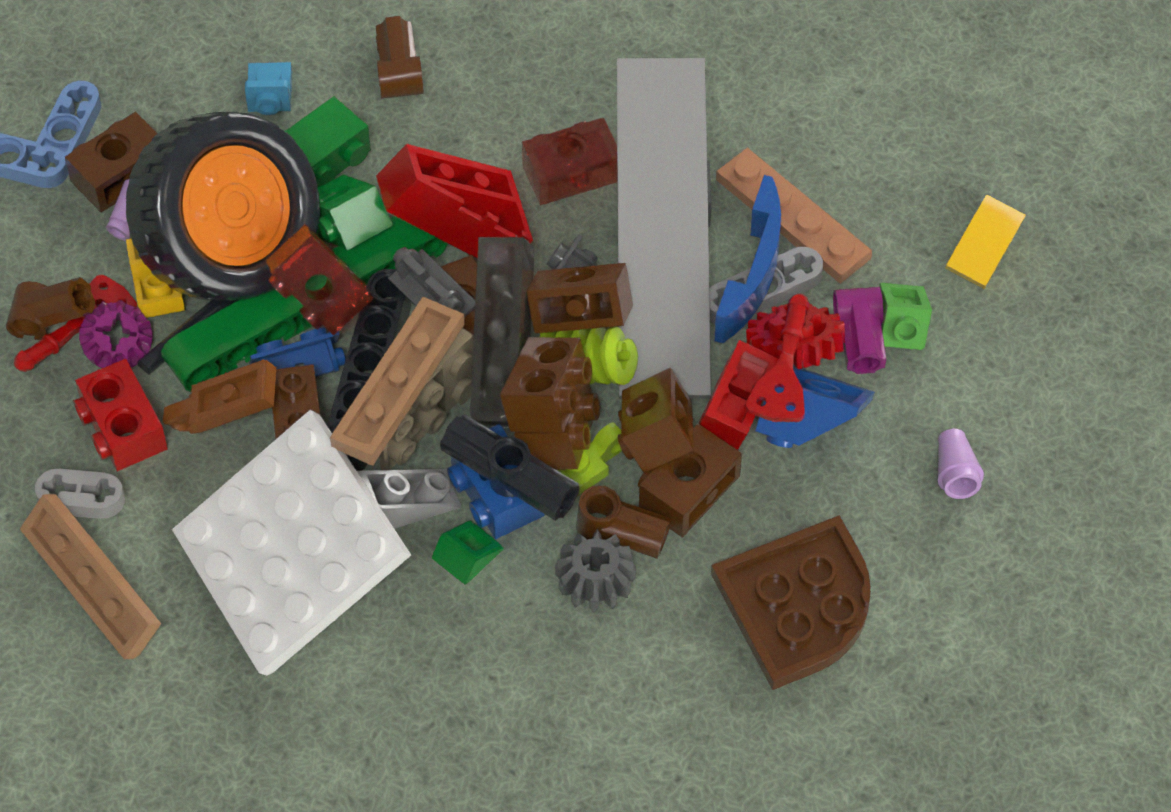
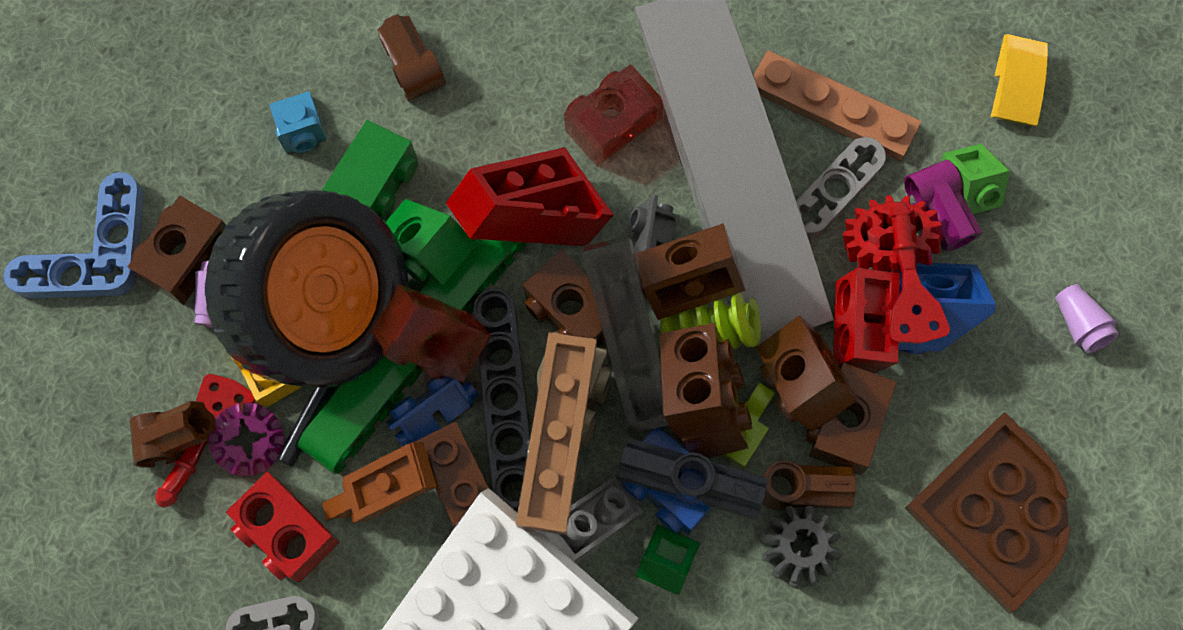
camera: 15 degrees left, 15 degrees up
(422, 277) = (540, 302): dark grey hinge -> none
(743, 300) = (826, 125): blue slope -> none

